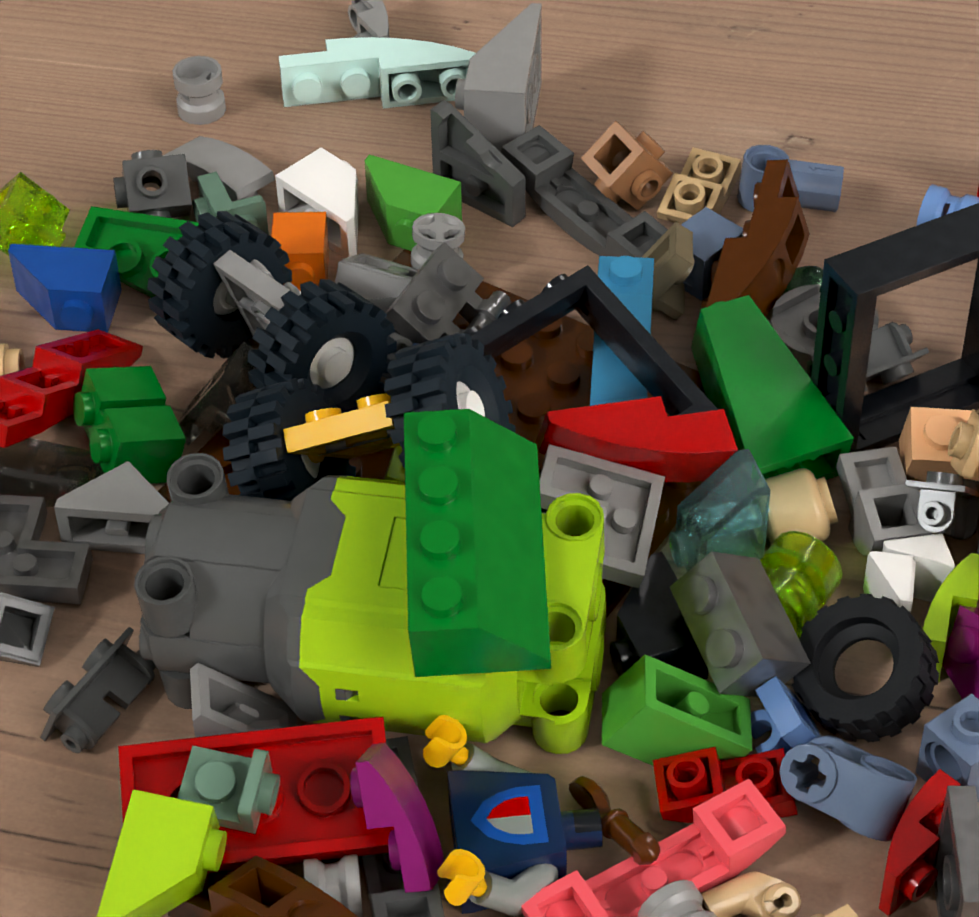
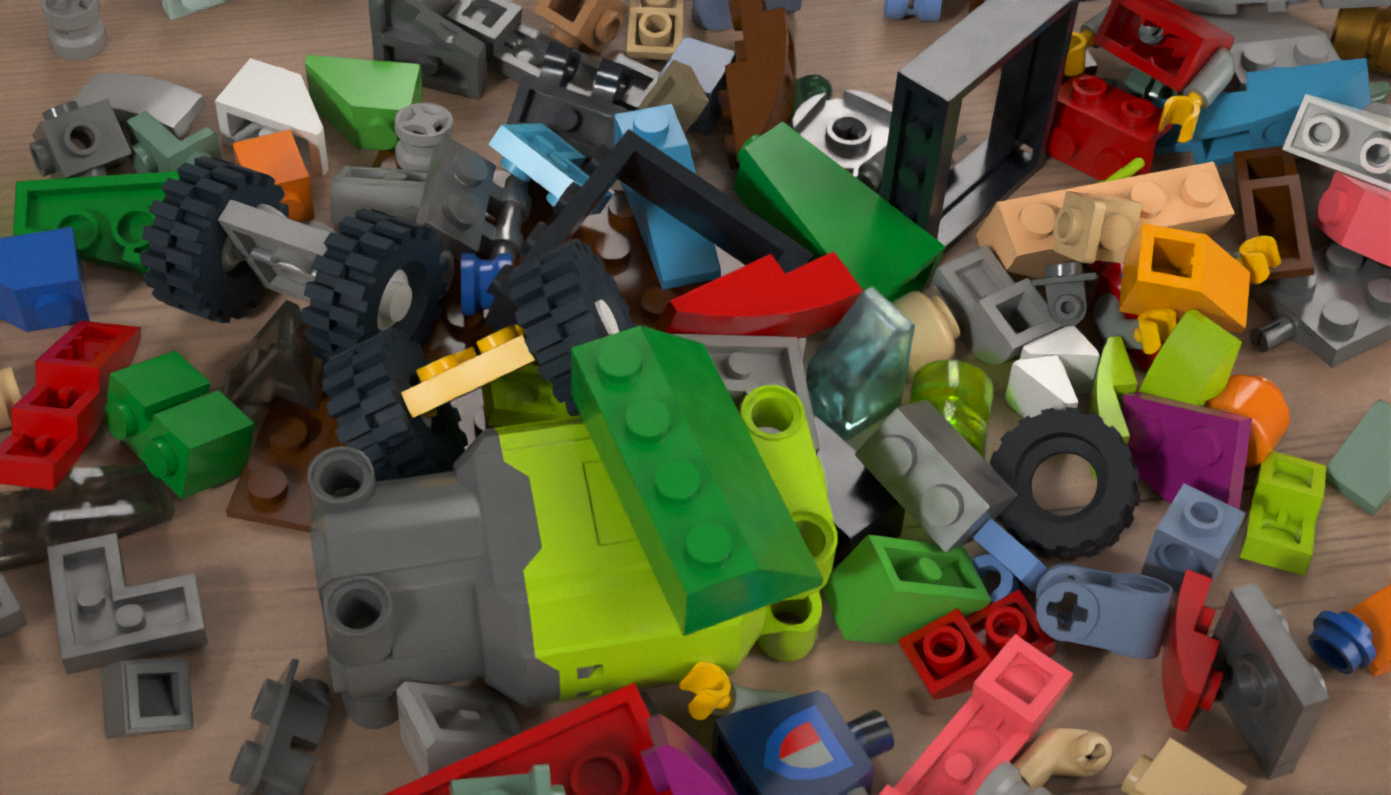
camera: 25 degrees left, 5 degrees up
(110, 511) = (212, 529): light grey slope -> none
(523, 275) = (542, 155): none -> medium azure plate
(562, 247) = (575, 117): none -> black plate
(615, 822) = (925, 733): reddish brown piece -> none

